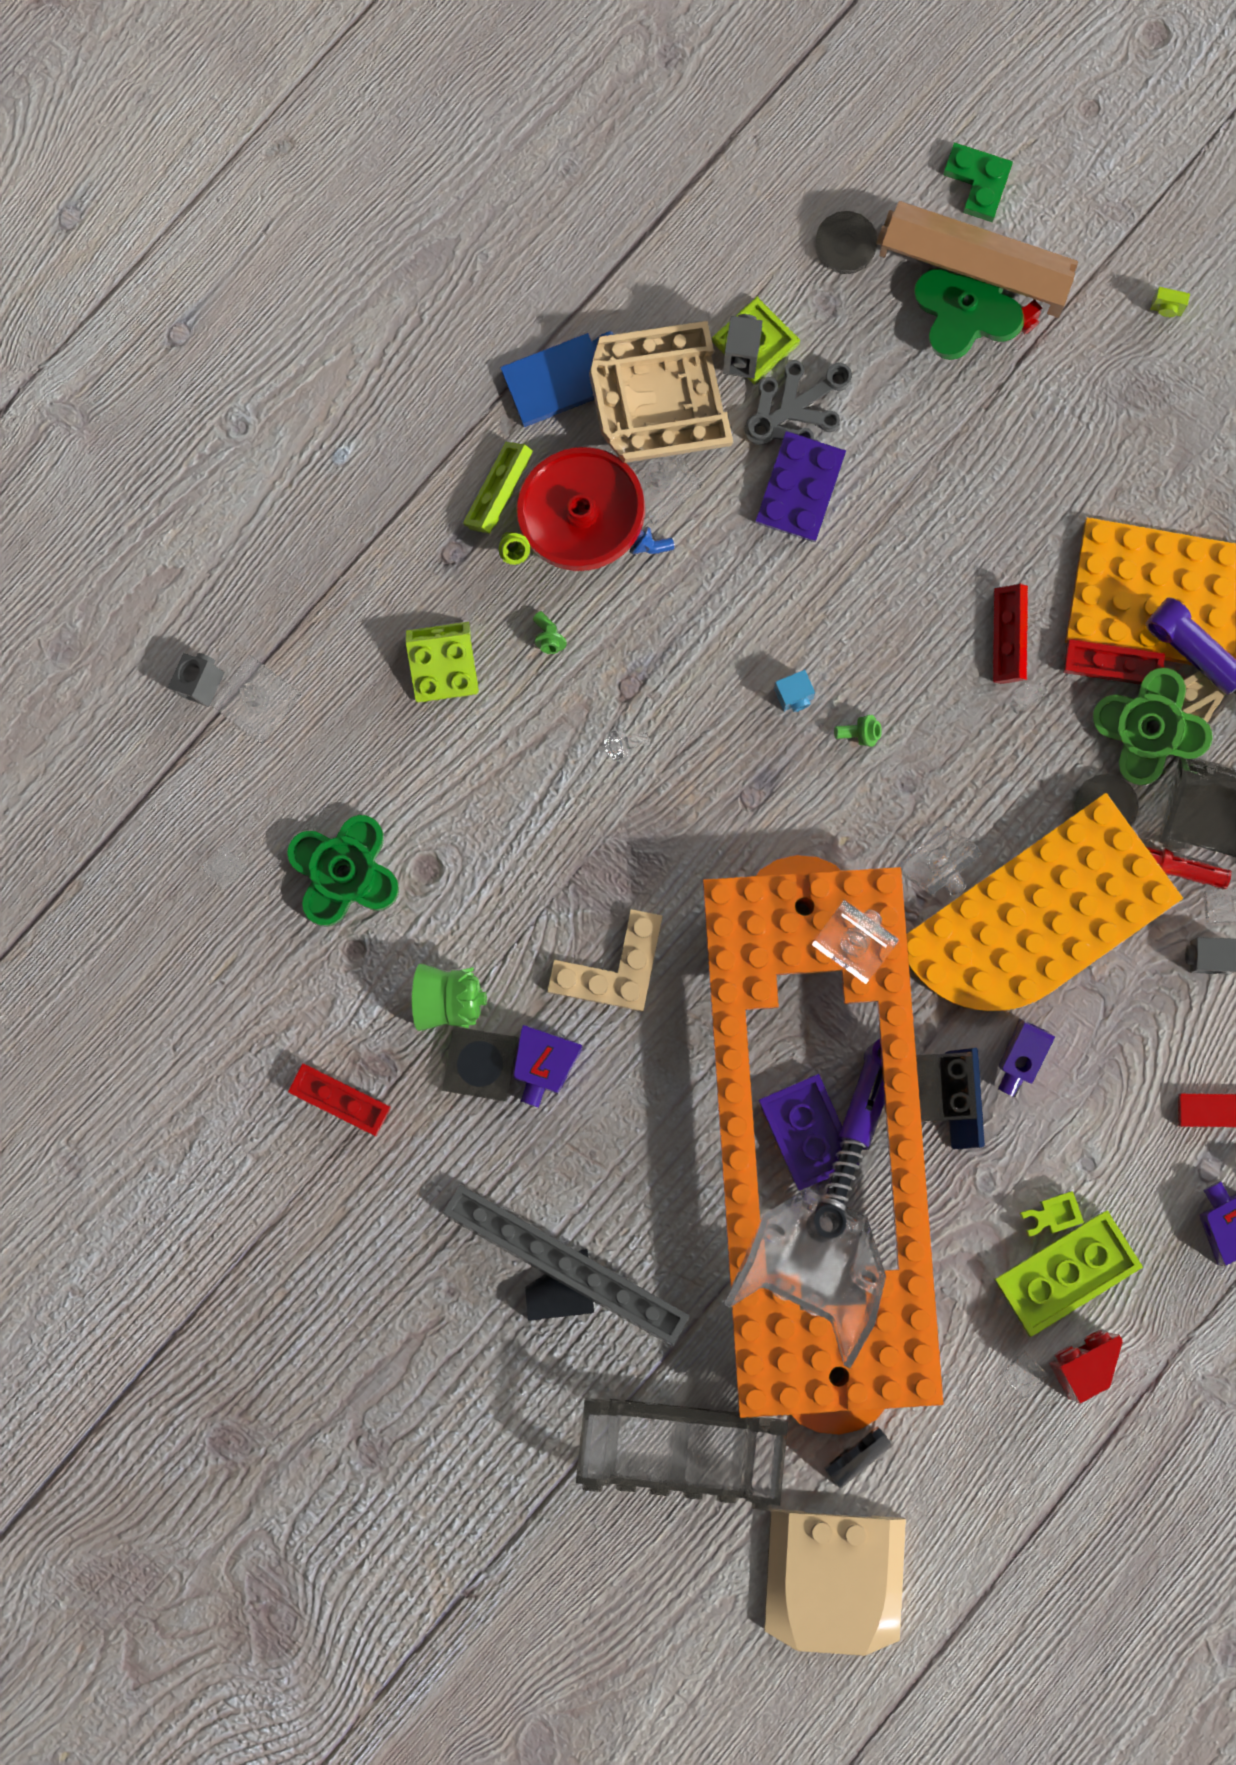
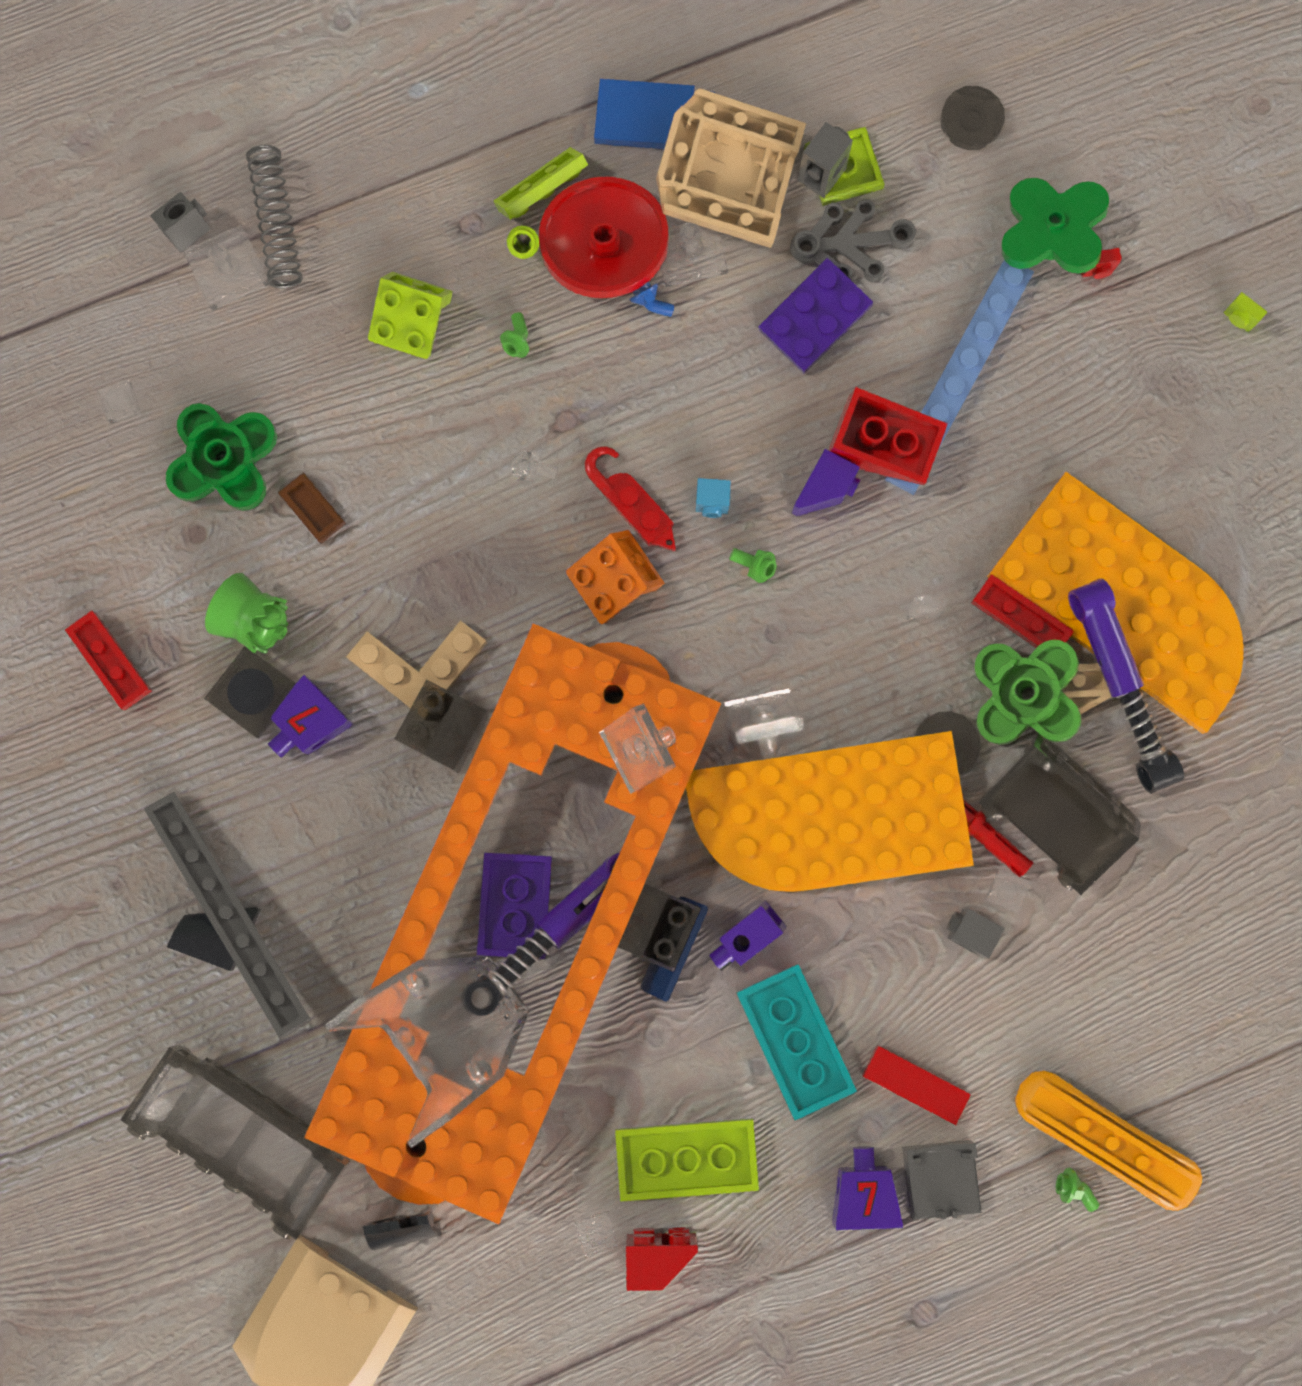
camera: 25 degrees right, 0 degrees up
(307, 689) = (267, 163): none -> dark grey piece
(446, 876) = (312, 508): none -> reddish brown tile
(666, 1009) = (442, 726): none -> clear smoke slope
(725, 730) = (631, 502): none -> red plate
(744, 804) = (613, 575): none -> orange bracket
(888, 630) = (827, 484): none -> dark purple slope
(919, 565) = (887, 437): none -> red slope
(952, 480) = (973, 350): none -> medium blue plate
(978, 254) = (1088, 182): medium nougat panel -> none
(985, 174) = (1132, 118): green plate -> none
(1010, 633) = (939, 542): red plate -> none
(1056, 1213) = (706, 1098): lime plate -> none
(1109, 1125) = (796, 1042): none -> teal plate

